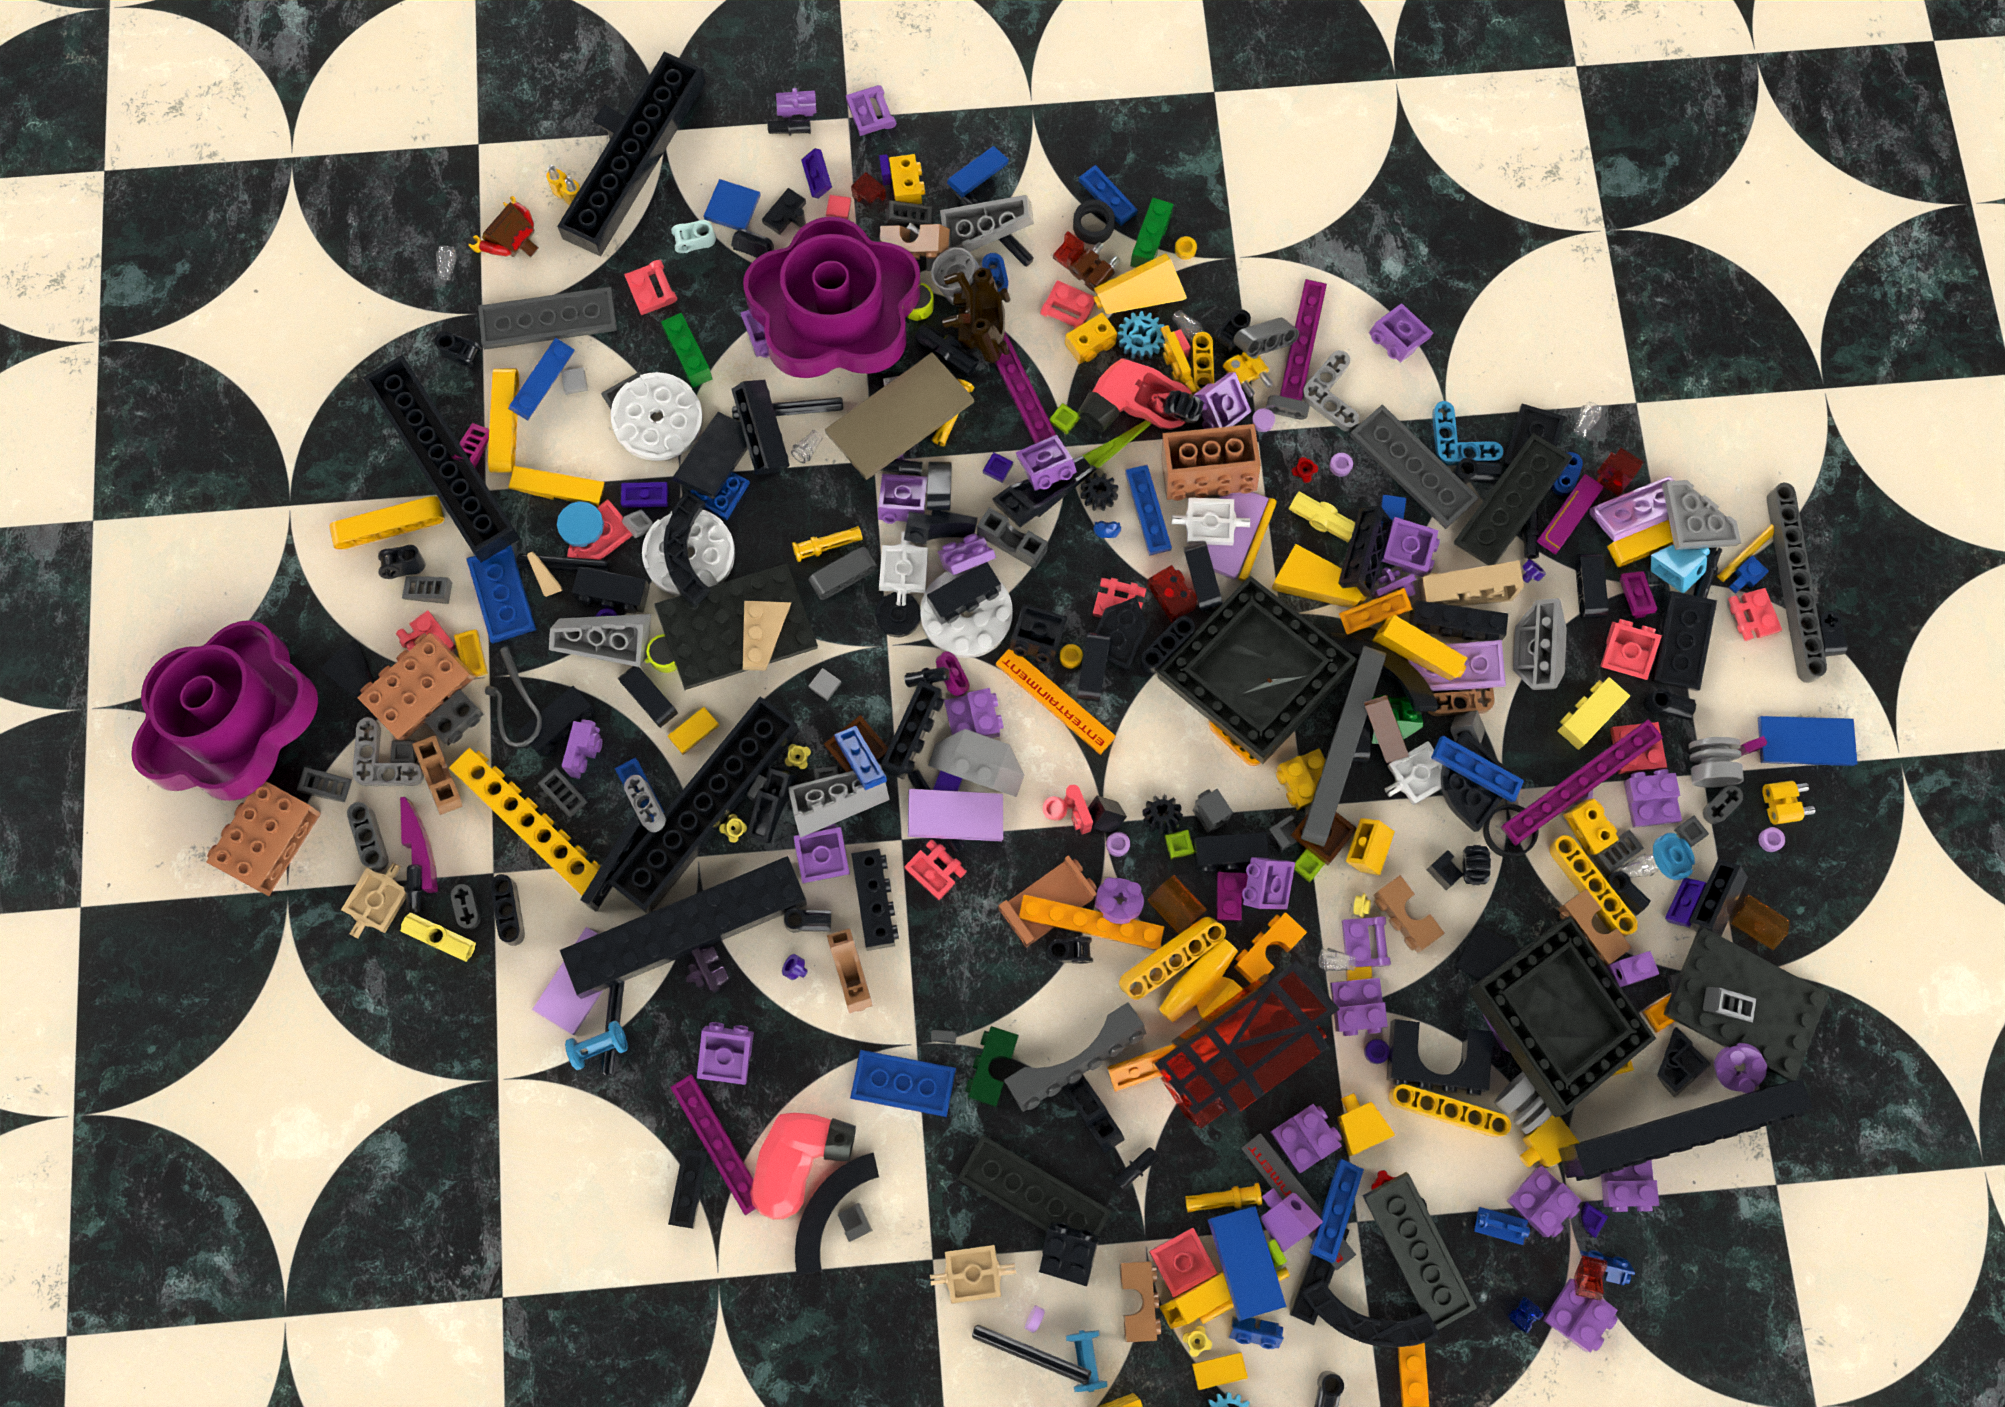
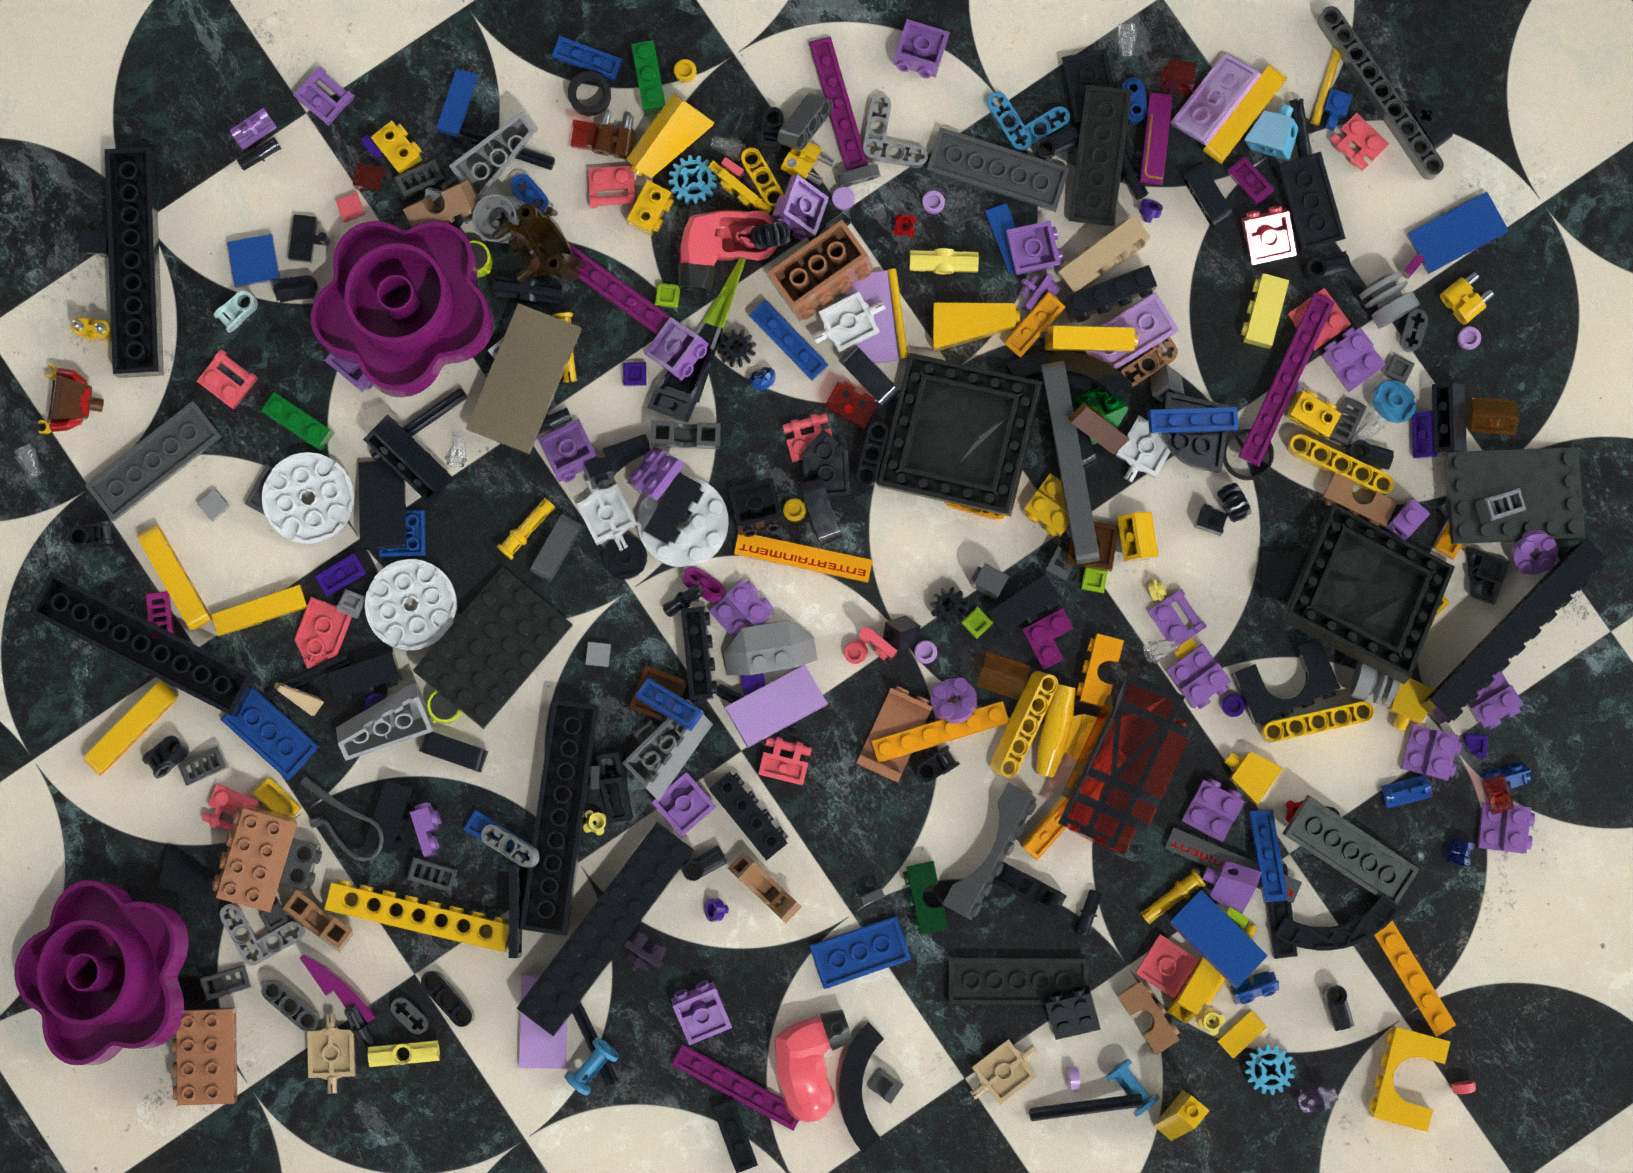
camera: 25 degrees left, 10 degrees up
(541, 379) = (185, 521): blue plate -> none
(580, 524) = (302, 633): dark azure tile -> none
(676, 549) = (402, 611): black tile -> none
(693, 730) = (510, 758): yellow tile -> none
(761, 631) = (519, 641): tan wing -> none
(794, 750) = (617, 734): light yellow plate -> none
(816, 173) = (311, 186): dark purple plate -> none
(939, 486) = (595, 423): beam -> none
(1268, 883) = (1070, 617): medium lavender plate -> none
(1363, 548) = (995, 275): black fence -> none
(1417, 933) = (1180, 570): medium nougat arch -> none
(1541, 645) = (1191, 276): light grey wedge -> none
(1696, 519) = (1267, 87): light grey plate -> none

